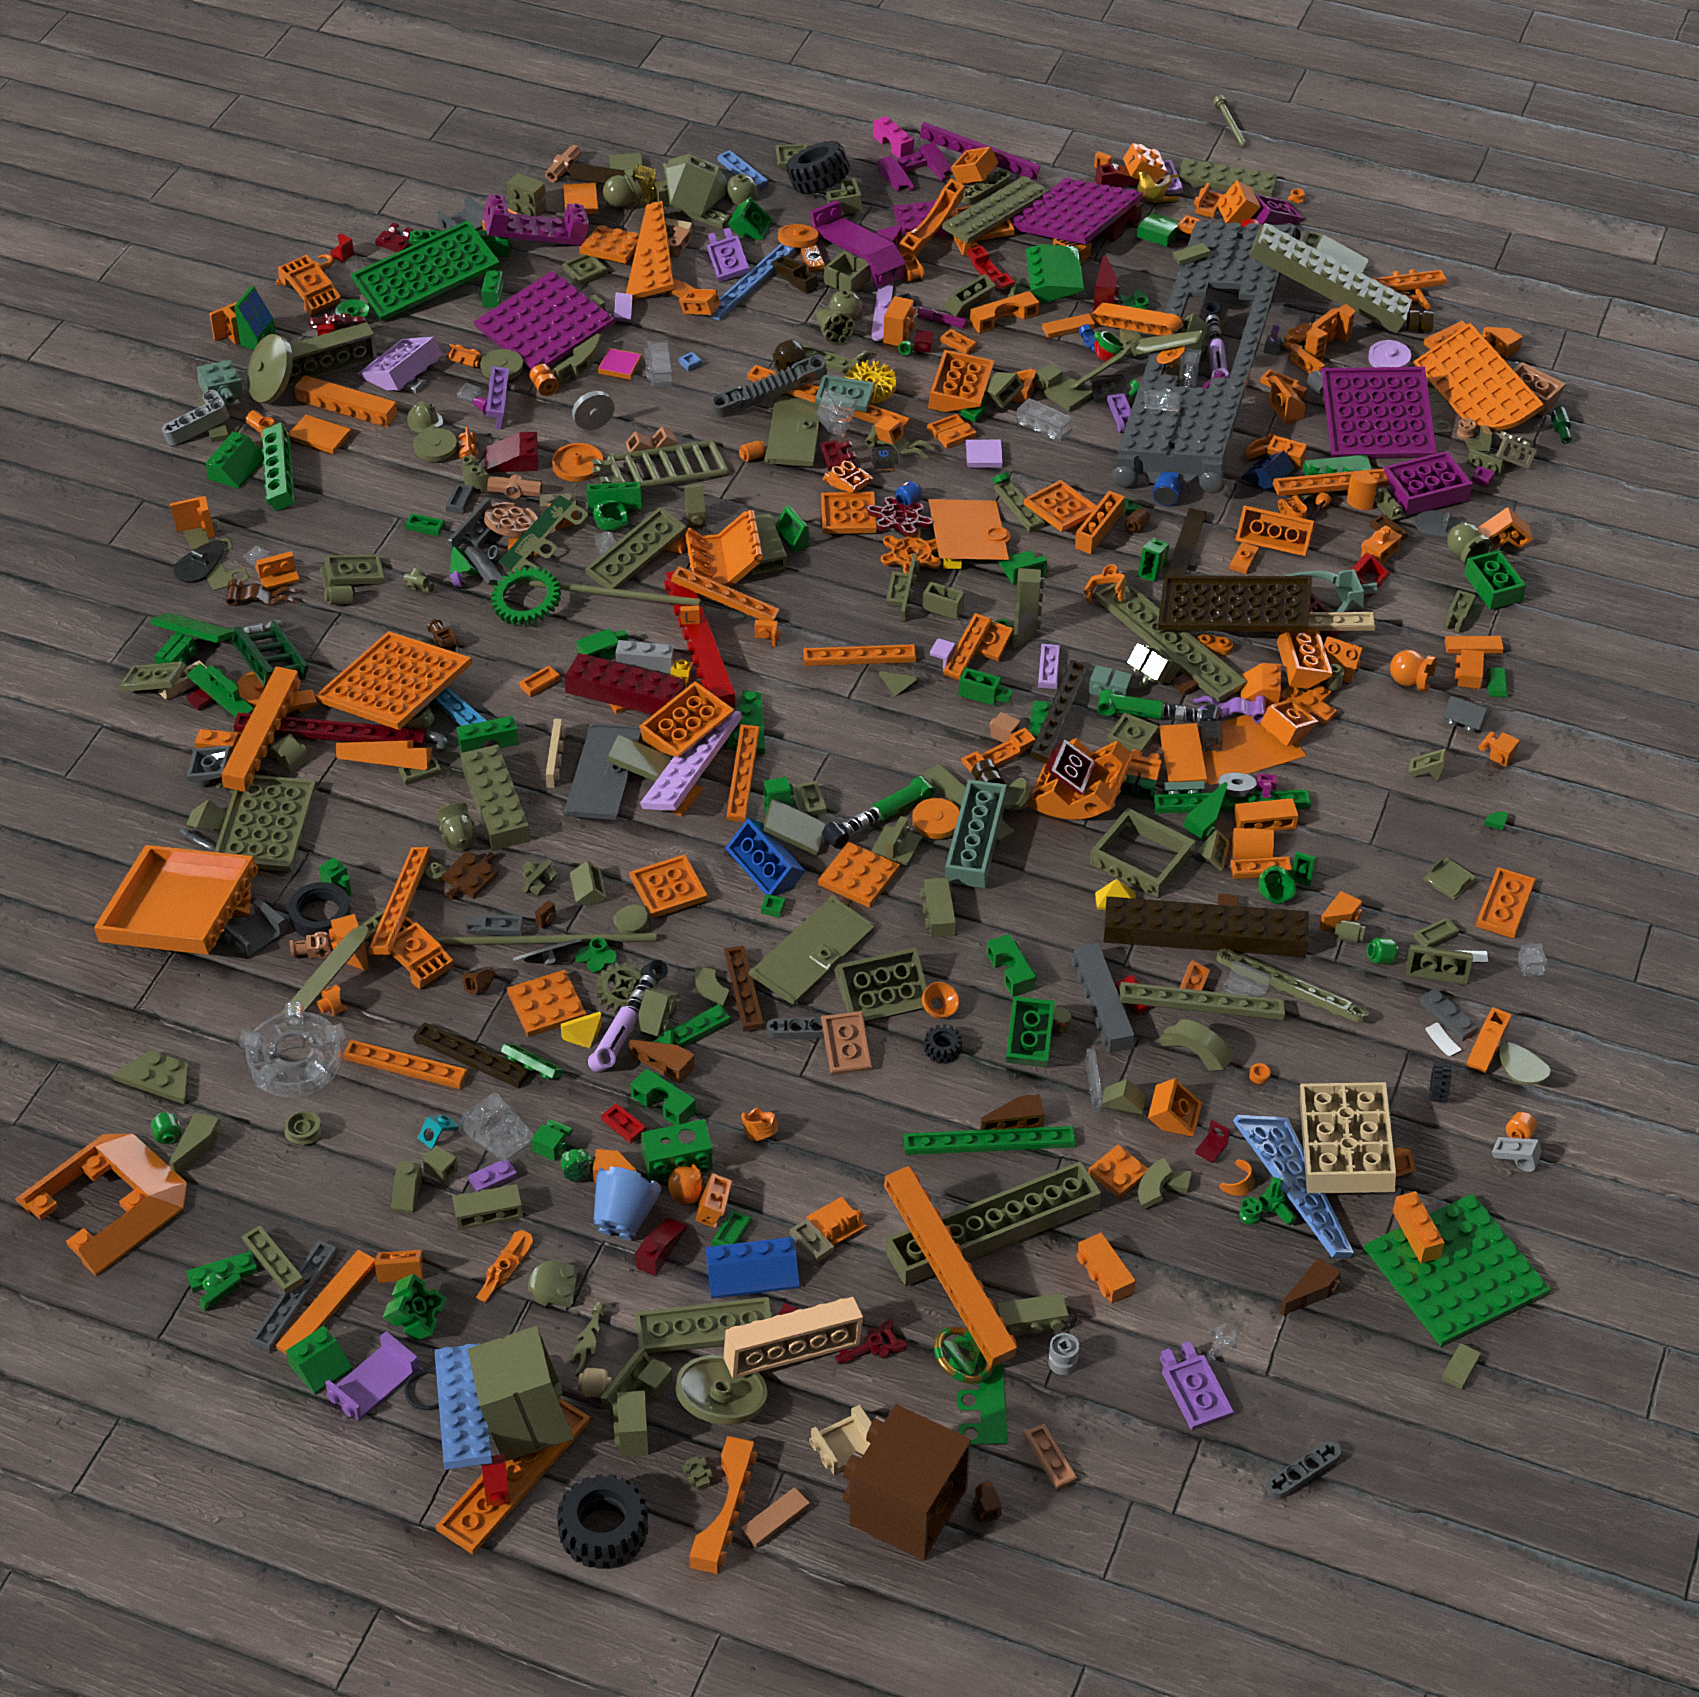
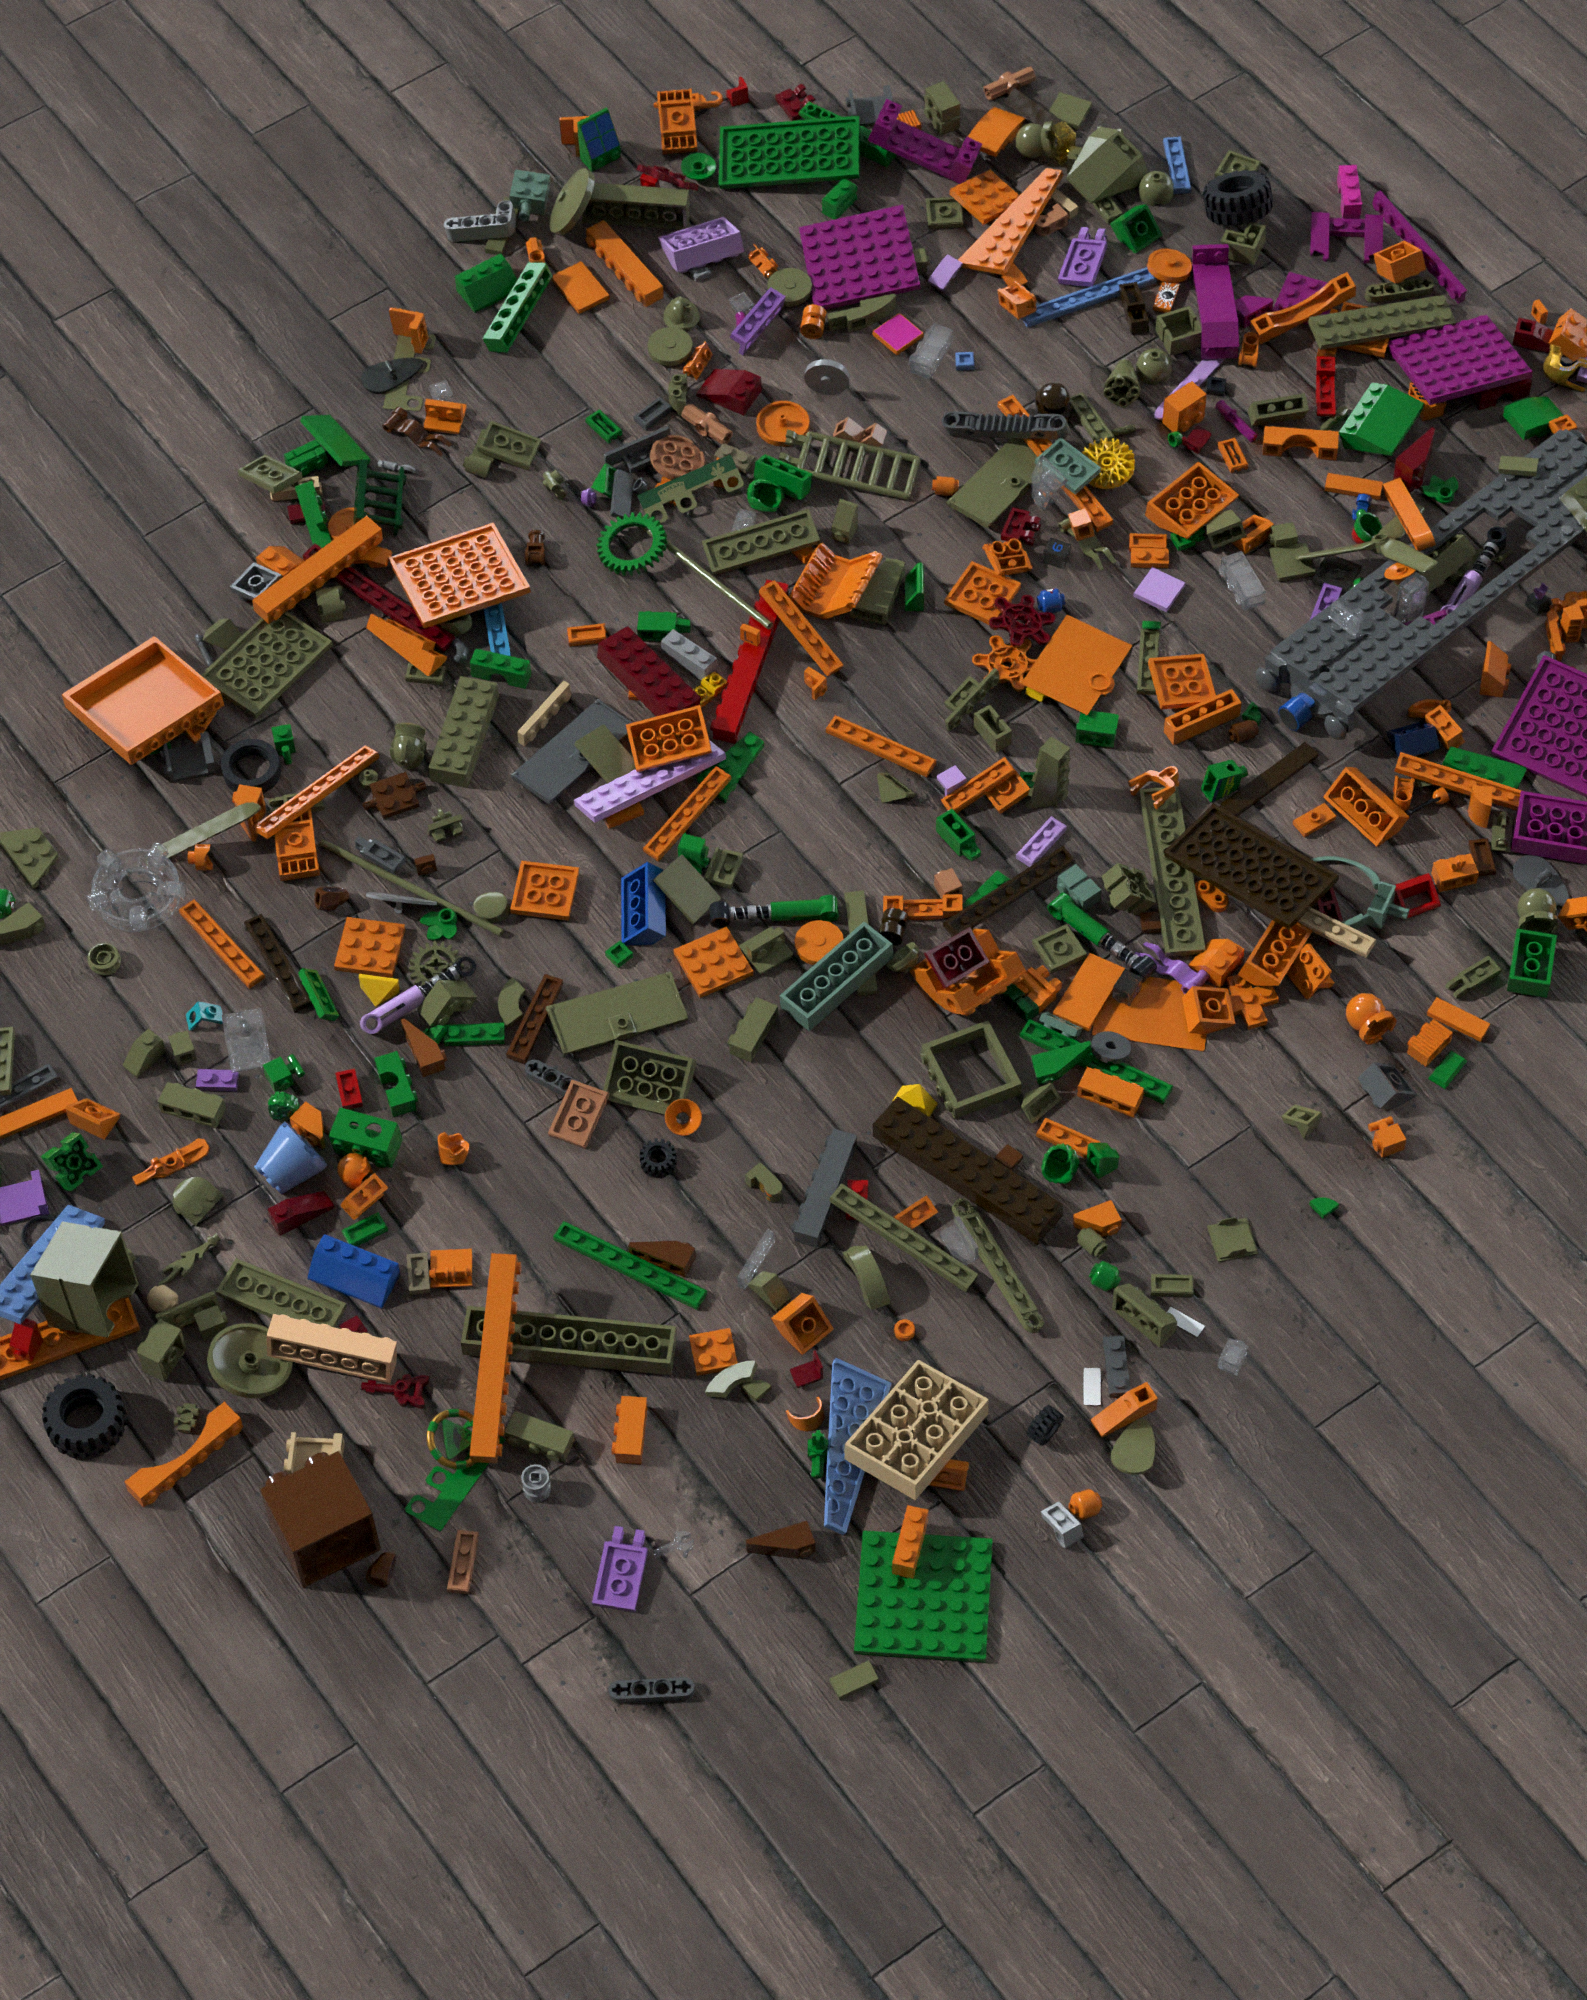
camera: 35 degrees right, 10 degrees up
(312, 946) = (221, 797): nougat connector -> none
(588, 884) = (481, 854): olive brick -> none
(775, 1517) = (217, 1487): nougat tile -> none
(1005, 952) = (769, 1131): green arch -> none
(1030, 1031) = (729, 1187): green brick -> none
(1252, 843) = (1076, 1113): orange brick -> none
(1252, 1205) = (788, 1444): green wheel -> none
(1266, 783) = (1139, 1059): magenta plate -> none
(1267, 380) = (1508, 643): orange hinge -> none
(1335, 681) = (1289, 986): olive brick -> none
(1505, 902) = (1261, 1289): orange tile -> none

